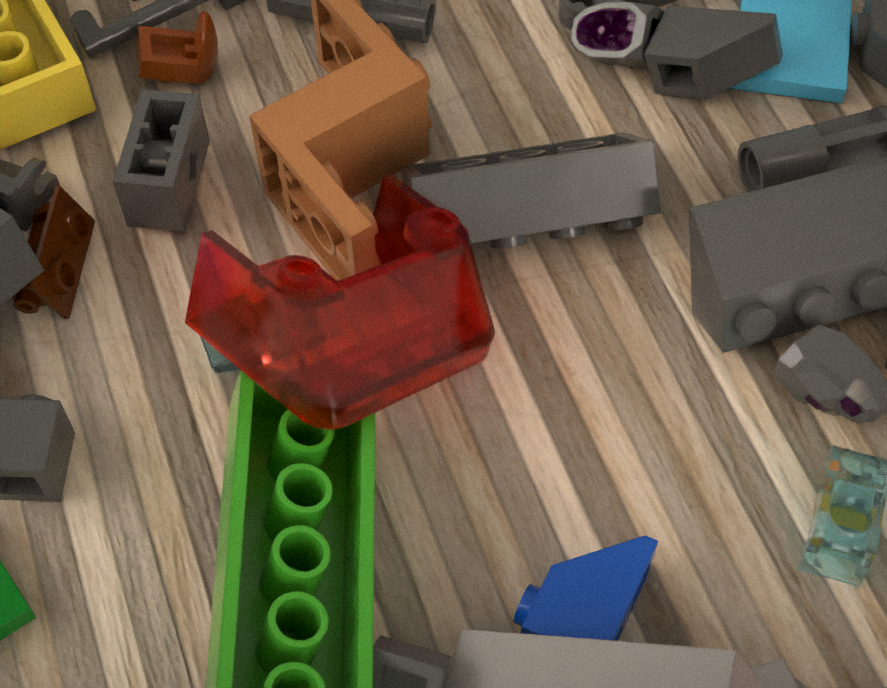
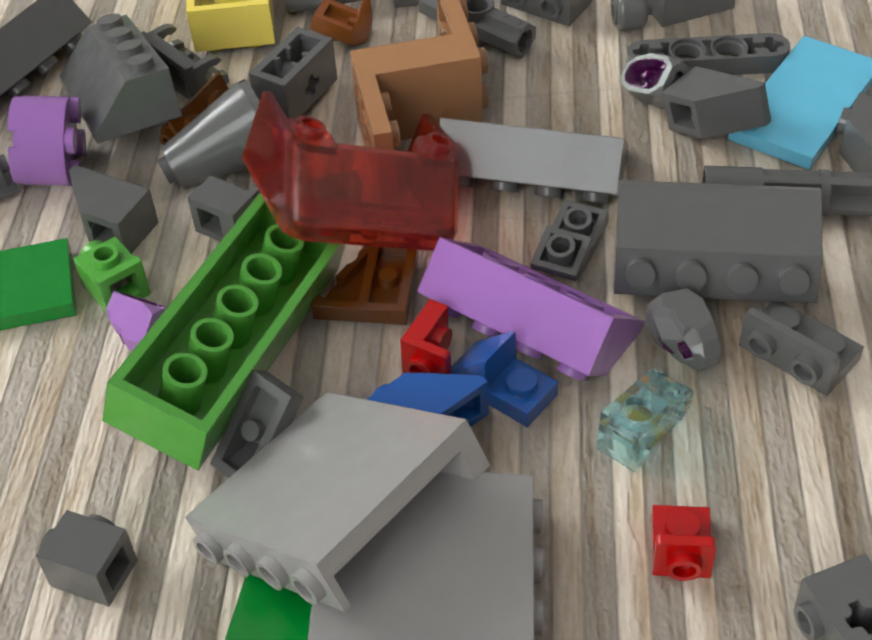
camera: 25 degrees right, 10 degrees down
(67, 560) = (107, 263): none -> bright green brick
(115, 287) = (213, 139): none -> dark grey cone
(152, 606) = (132, 317): none -> medium lavender rock
(171, 392) = (218, 206): none -> dark grey brick
(428, 446) = (372, 288): none -> reddish brown wing
(539, 521) = (427, 341): none -> red bracket
(628, 291) = (571, 240): none -> dark grey slope
(628, 505) = (512, 384): none -> blue slope
(636, 409) = (542, 311): none -> medium lavender slope

